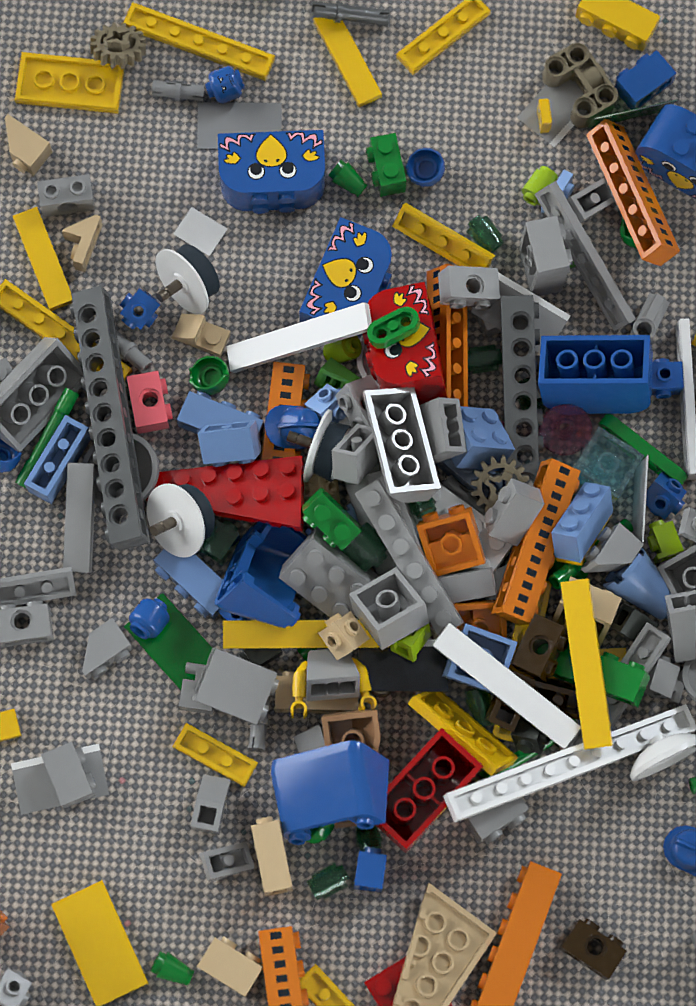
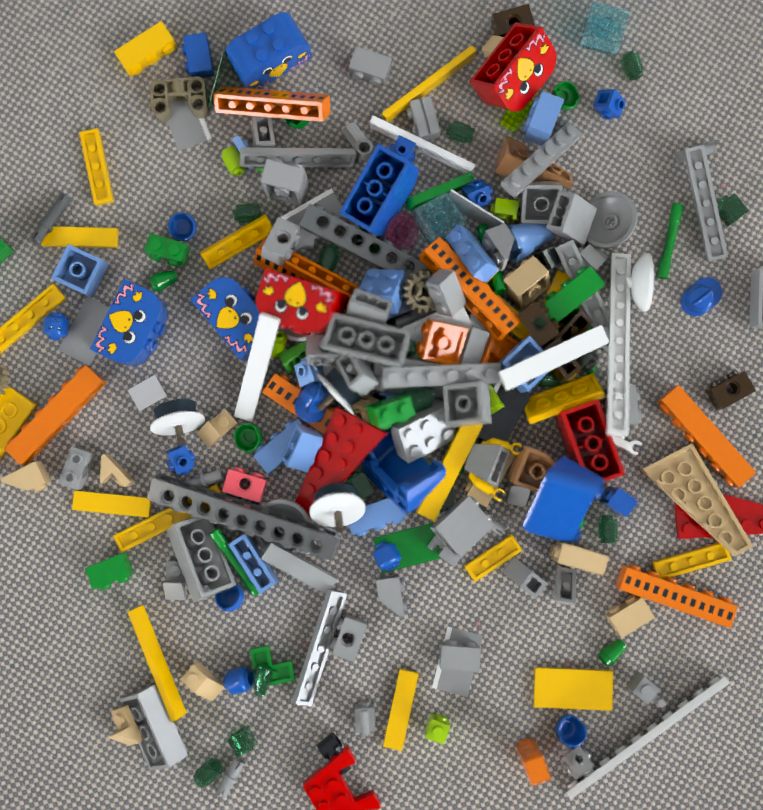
camera: 60 degrees left, 10 degrees up
(44, 963) = (570, 730): none -> blue hair
(117, 139) = (55, 415): none -> orange brick
(178, 90) = (43, 358): light grey pin -> none
(306, 78) = (80, 271): none -> medium blue brick
(343, 634) = (468, 442): tan brick -> none
(393, 327) = (287, 305): green plate -> none
(448, 837) = (625, 445): none -> white plate
(544, 115) = (187, 132): yellow tile -> none
(586, 664) = (566, 299): yellow tile -> none

